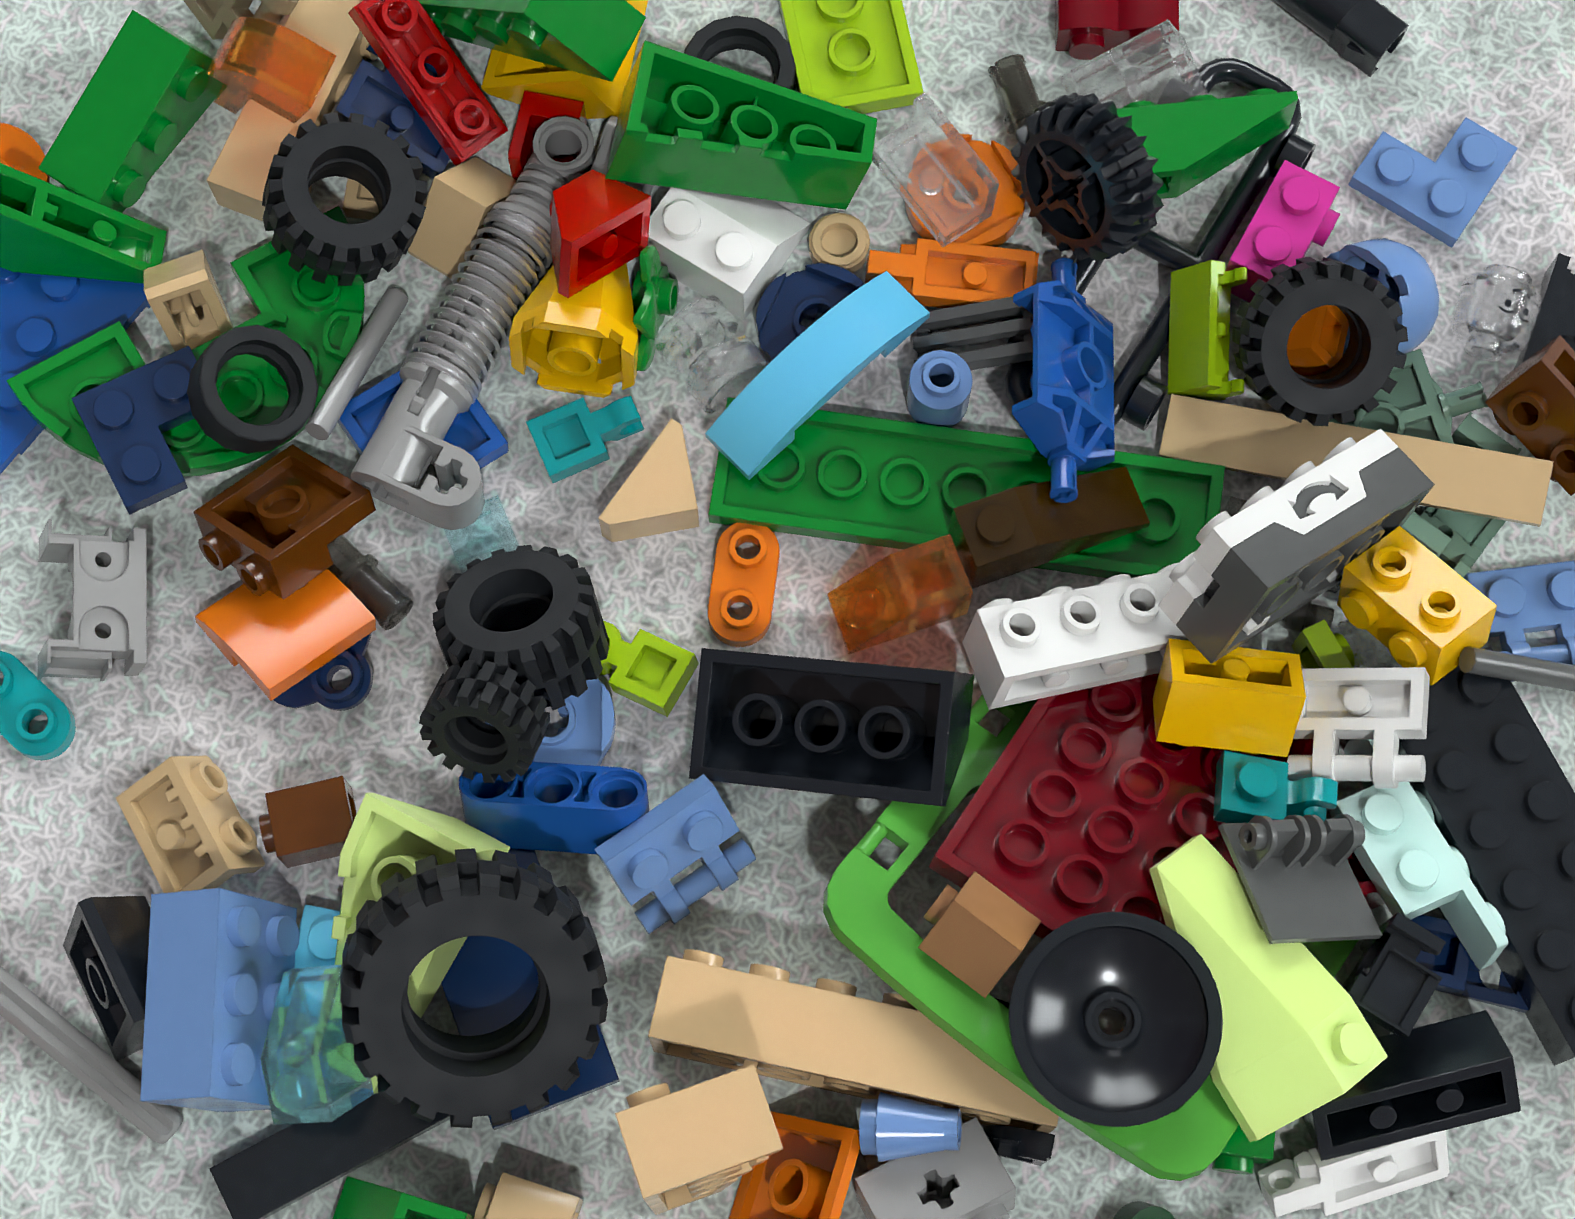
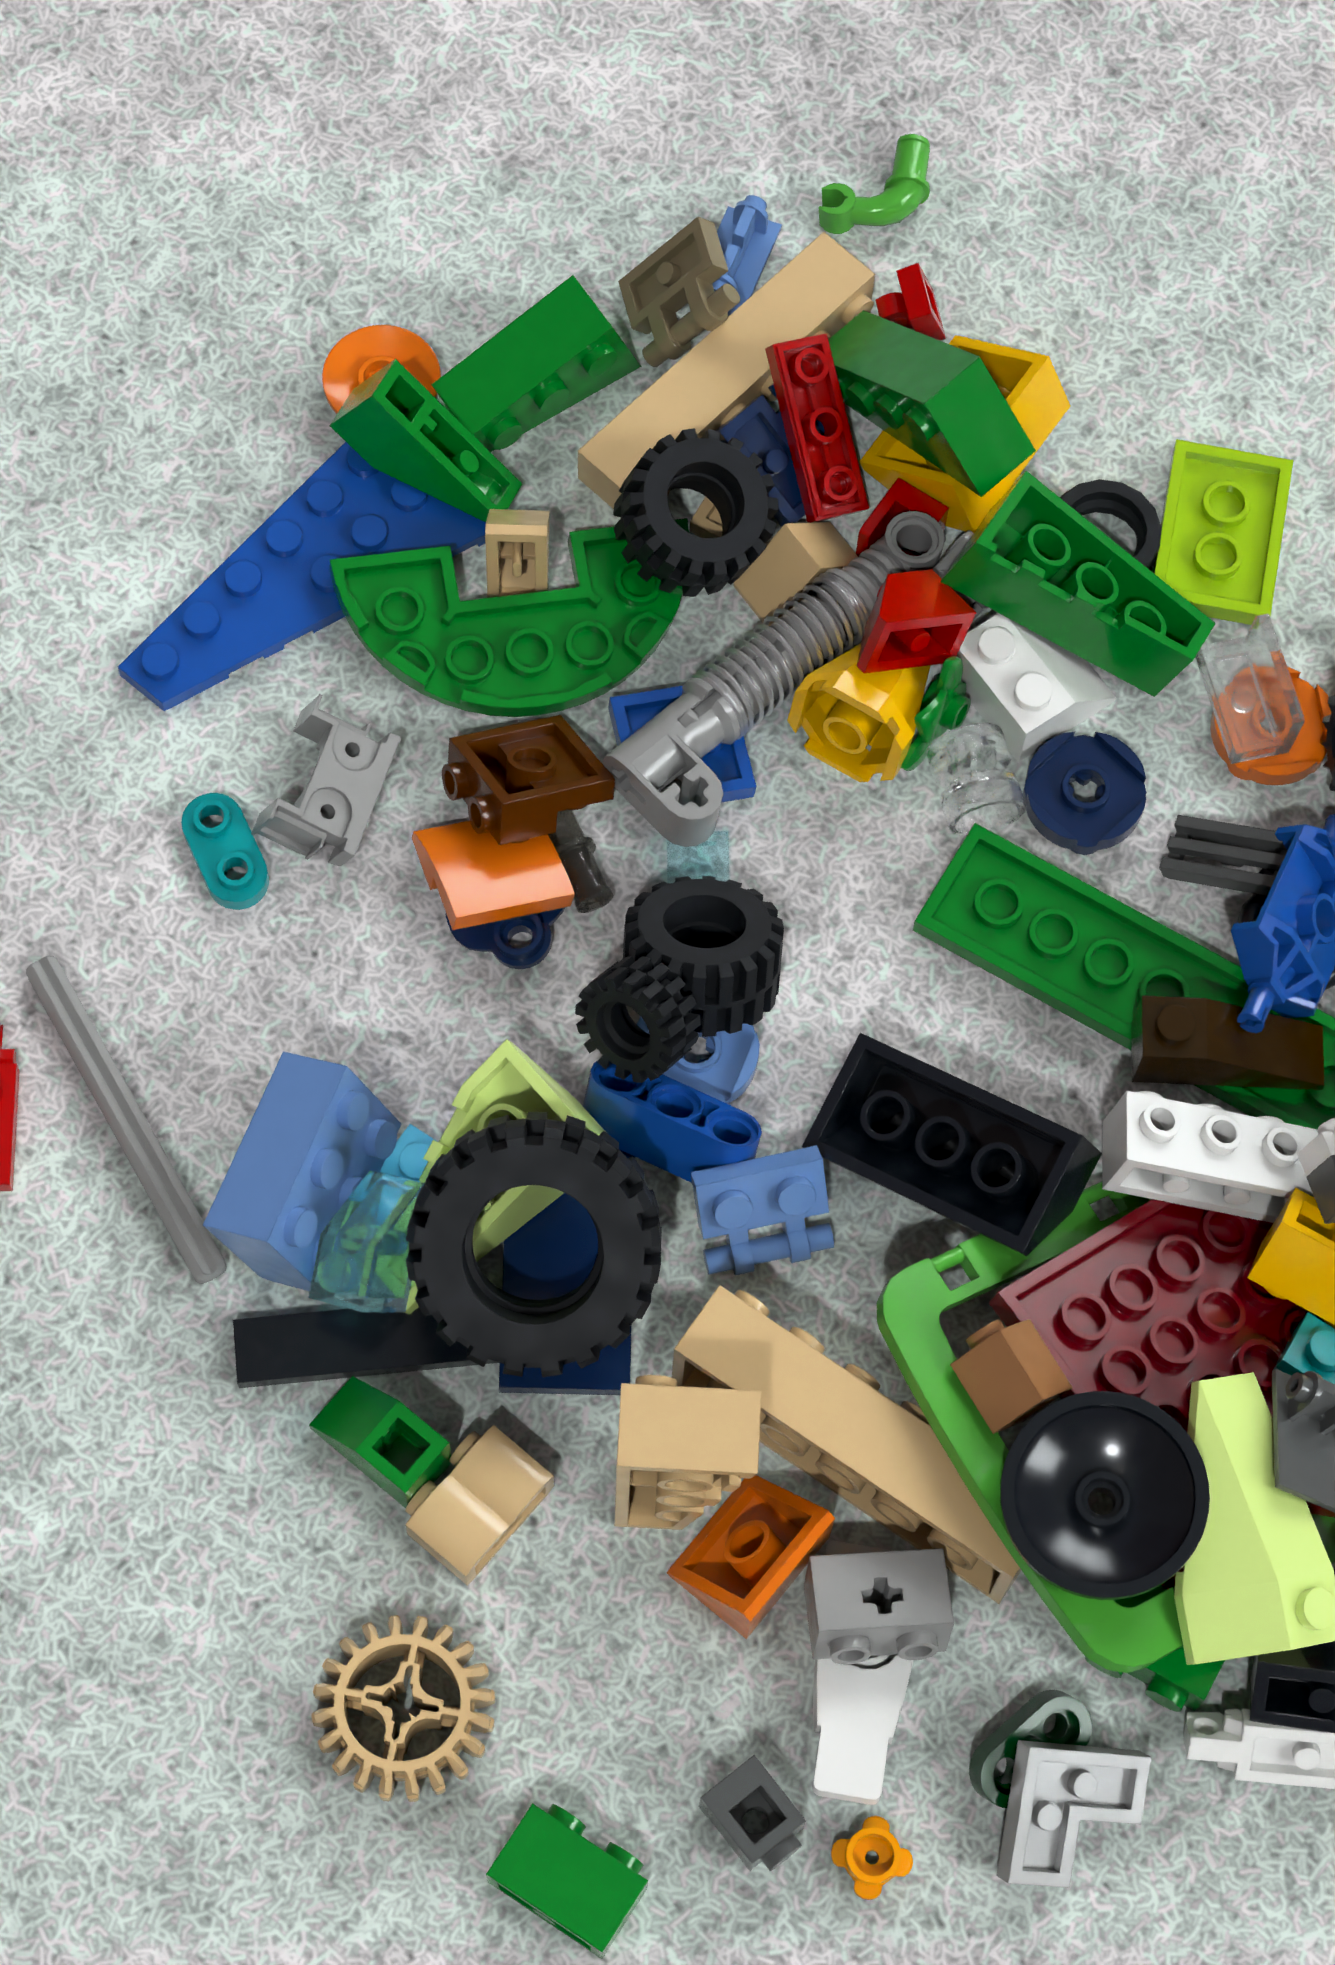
camera: 20 degrees right, 5 degrees down
(110, 959) = (217, 1106): black slope -> none
(128, 424) = (426, 633): dark blue plate -> none
(189, 825) = (336, 1010): tan bracket -> none
(270, 67) = (675, 371): clear orange brick -> none
(279, 352) = (581, 624): black tyre -> none
(308, 821) = (442, 1050): reddish brown brick -> none
(356, 364) = (647, 664): light grey bar -> none
(574, 438) = (818, 806): teal plate -> none
(647, 669) = (802, 1038): lime plate -> none
(656, 494) = (872, 885): tan slope -> none
(743, 581) = (924, 995): orange plate -> none
(813, 371) = (1063, 826): medium azure slope -> none
(839, 241) = (1137, 724): tan tile -> none
(902, 595) = (1065, 1061): clear orange slope -> none
(906, 1127) = (874, 1528): medium blue cone -> none
(939, 389) = (1175, 889): medium blue brick -> none
(956, 272) = (1228, 791): orange hinge -> none
(1032, 1148) = (980, 1605): black tile -> none

